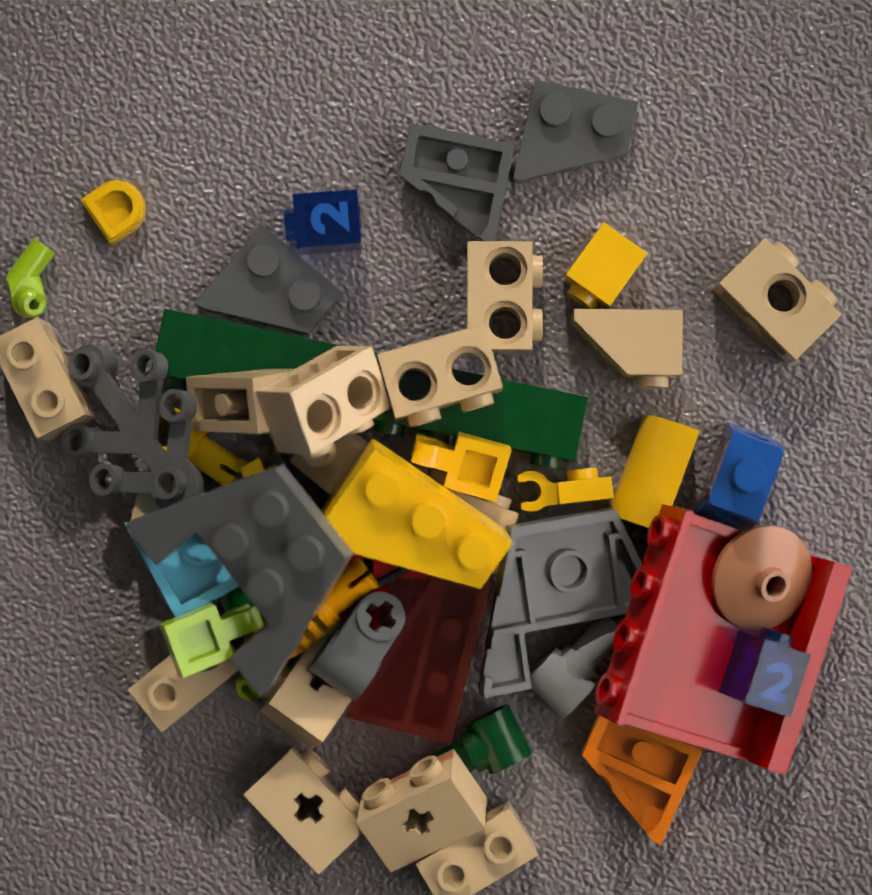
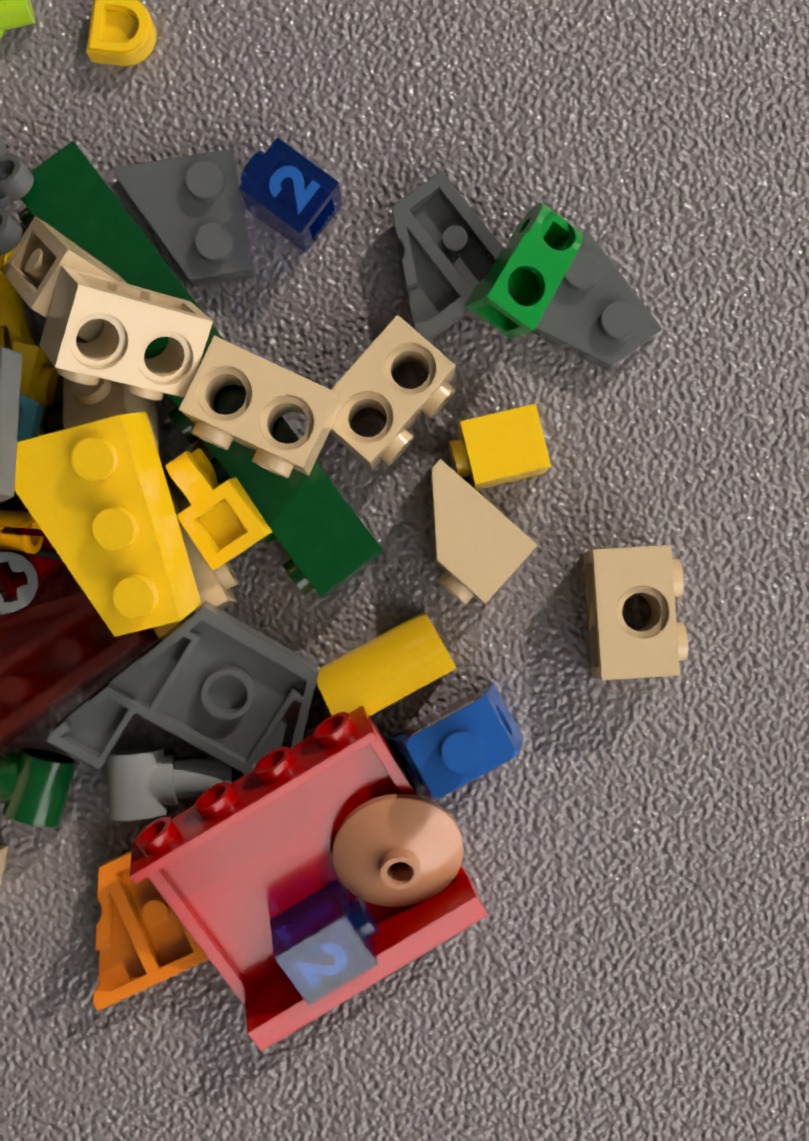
camera: 40 degrees right, 0 degrees up
(526, 143) = (526, 273): none -> green leg
(580, 486) = (308, 626): yellow plate -> none

